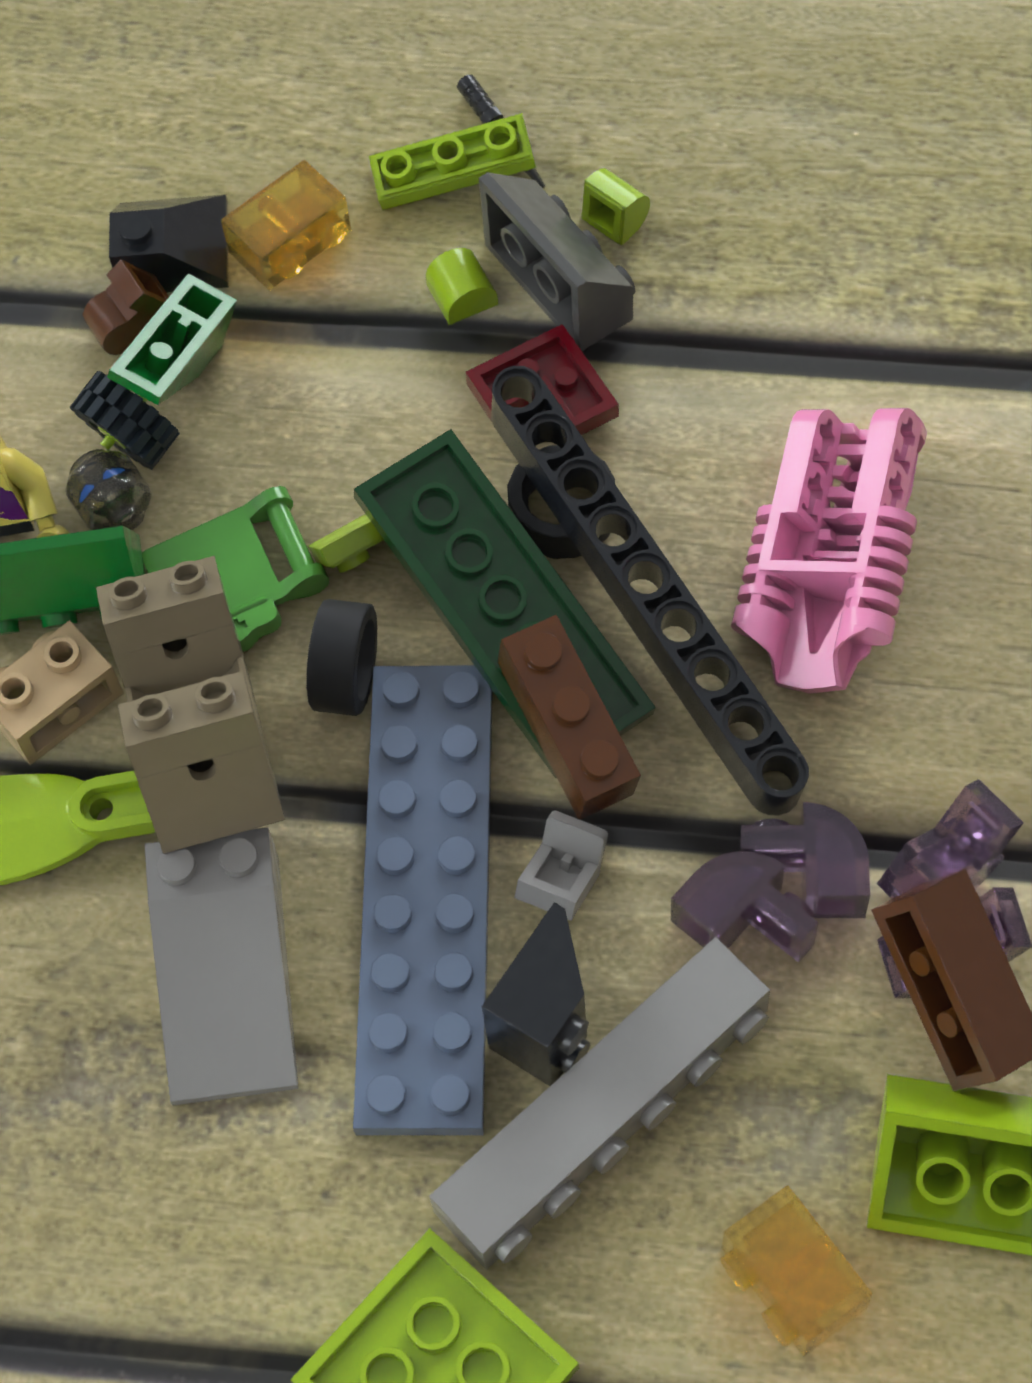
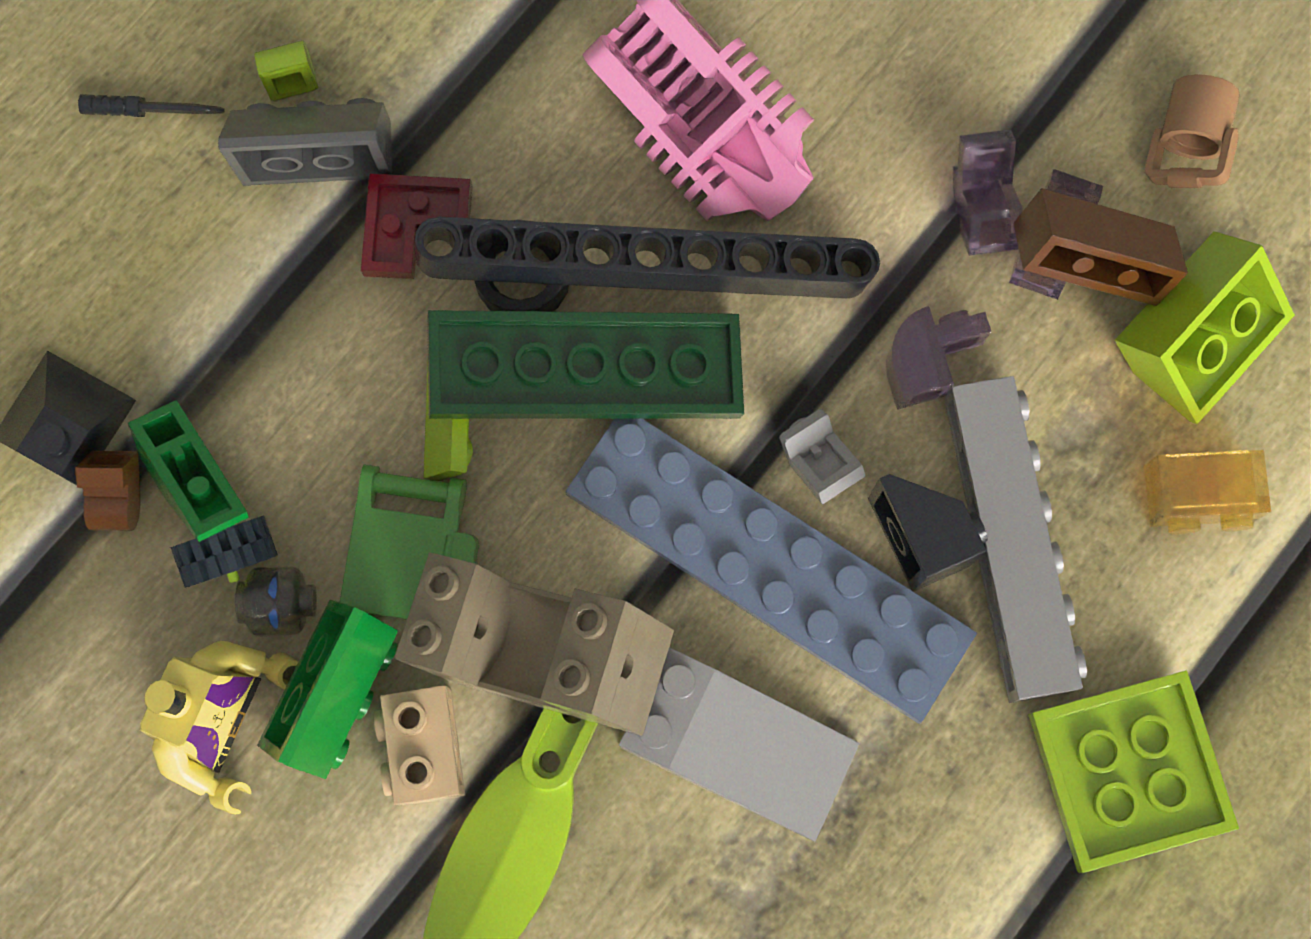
camera: 60 degrees left, 15 degrees up
(287, 225) = (121, 320): clear yellow brick -> none
(341, 657) = (553, 508): black tyre -> none
(426, 166) = (144, 191): lime tile -> none
(460, 285) = (273, 226): lime brick -> none
(568, 717) = (722, 378): reddish brown brick -> none
(826, 853) = (927, 272): clear purple brick -> none

